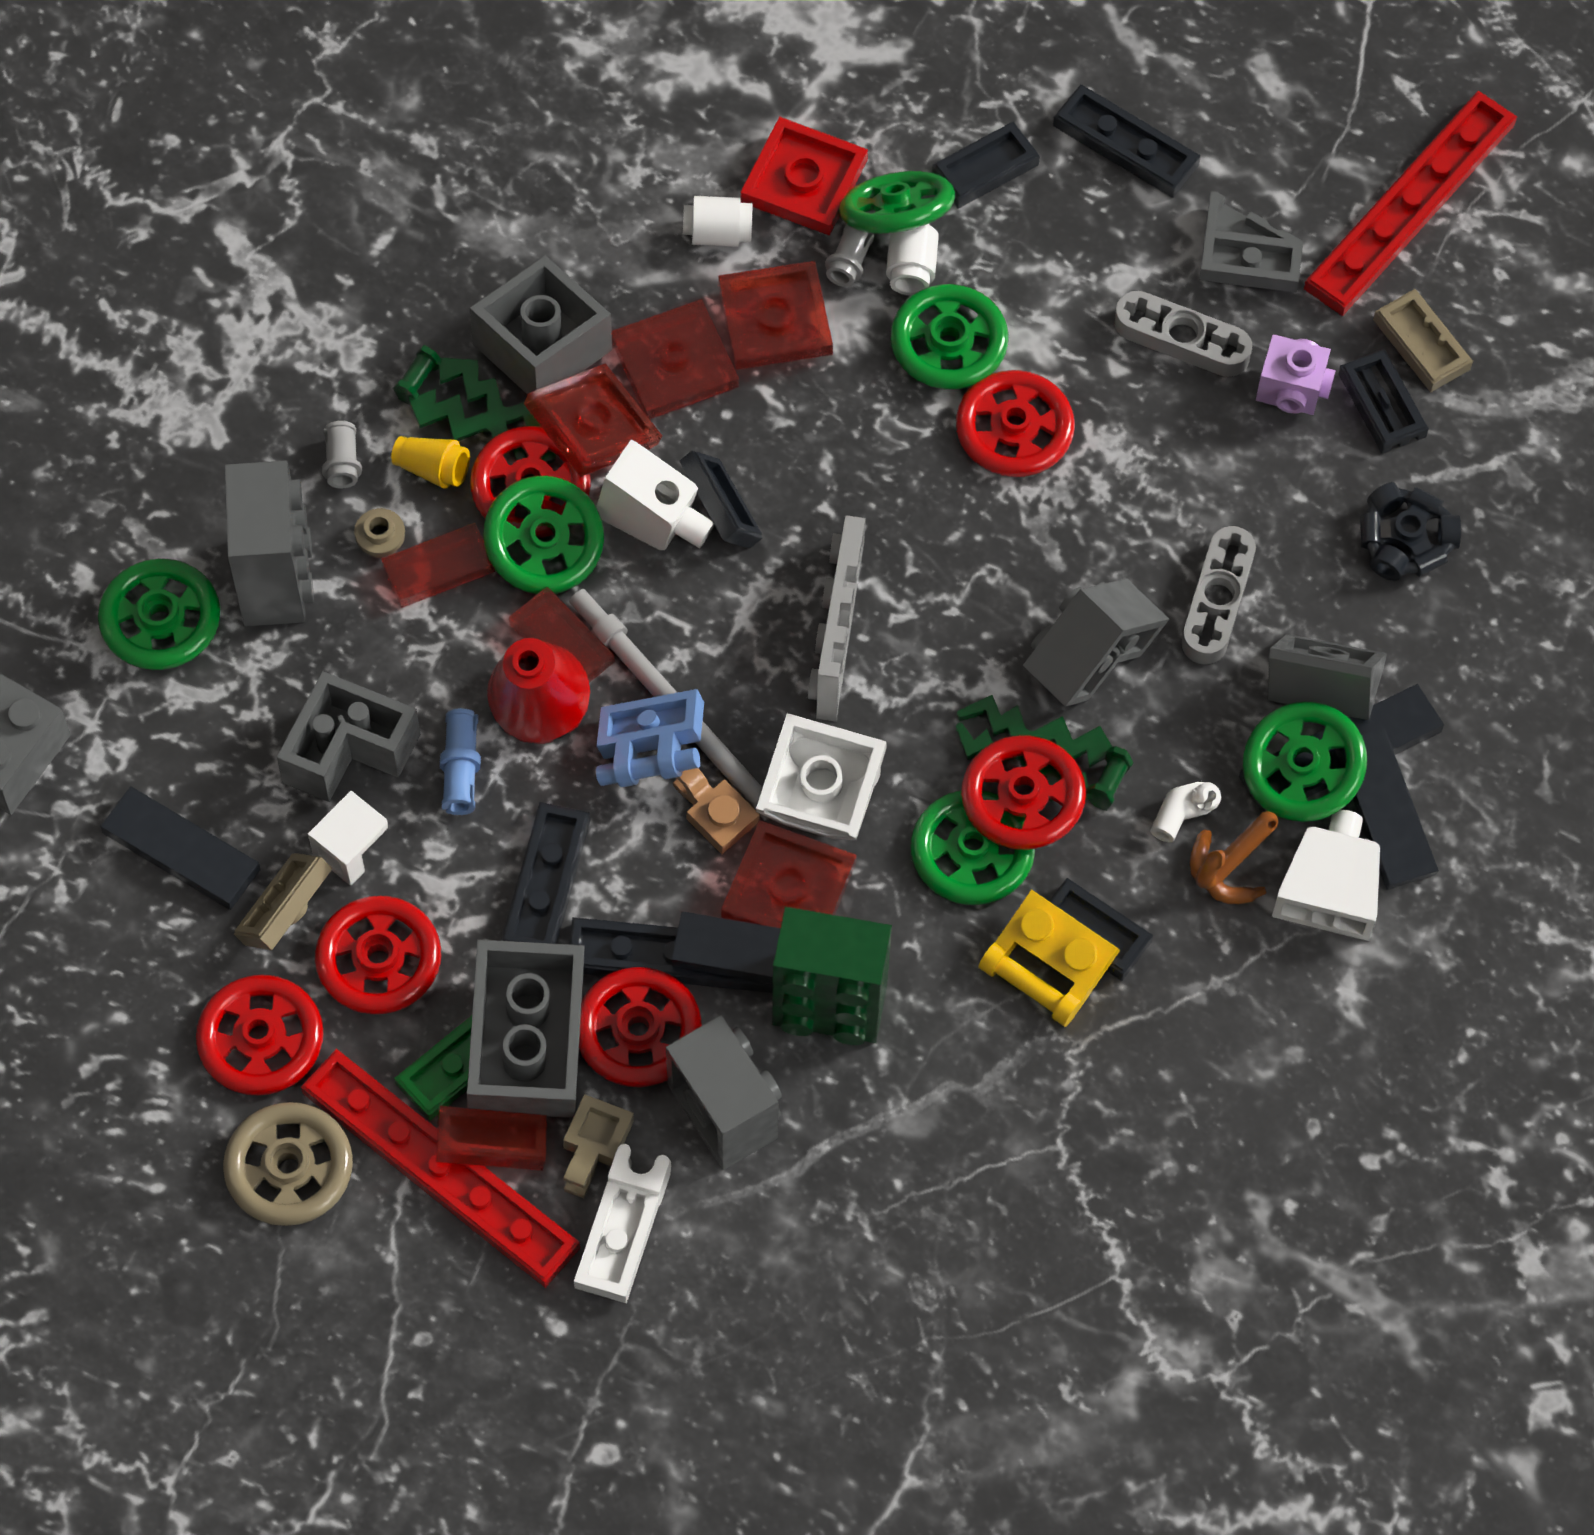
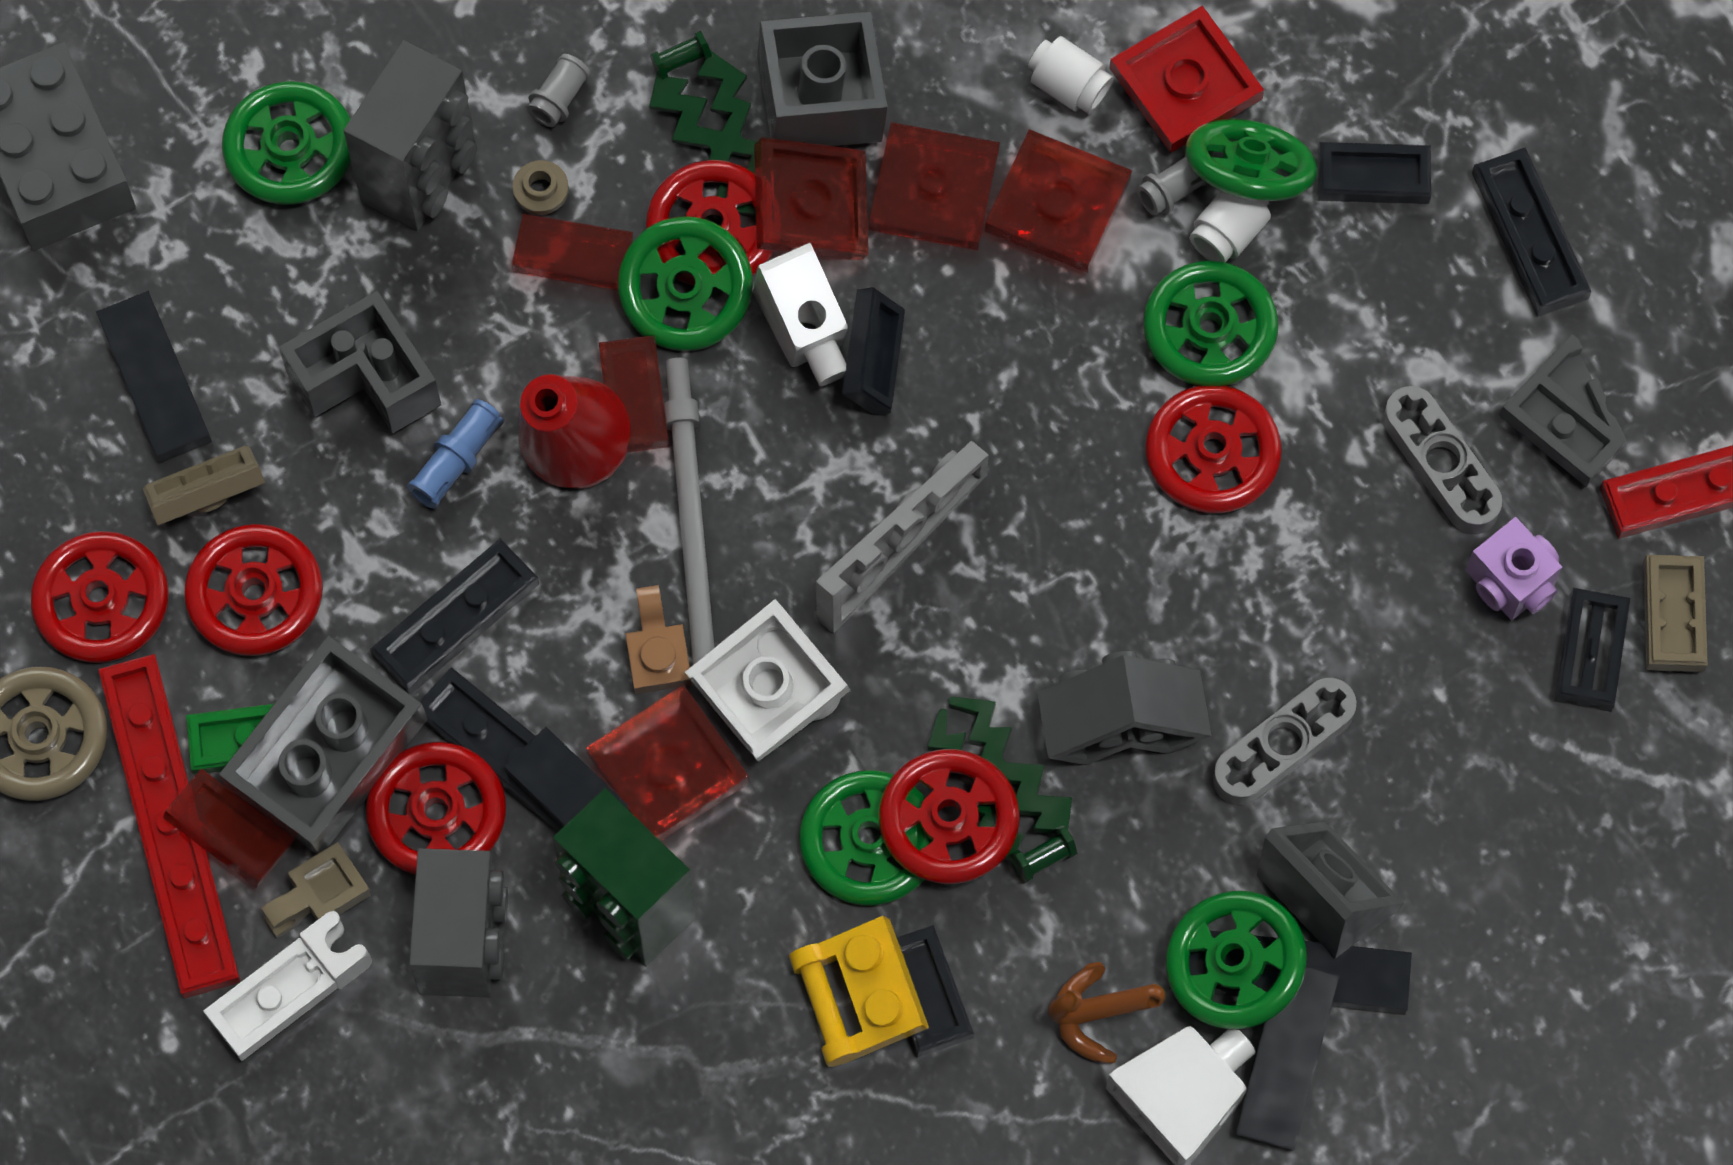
camera: 35 degrees right, 5 degrees up
(346, 835) = (301, 458): white panel -> none
(434, 460) = (638, 148): yellow cone -> none
(645, 726) = (647, 529): medium blue plate -> none
(1183, 804) = (1097, 924): white arm -> none
(1407, 531) = (1516, 794): black piece -> none

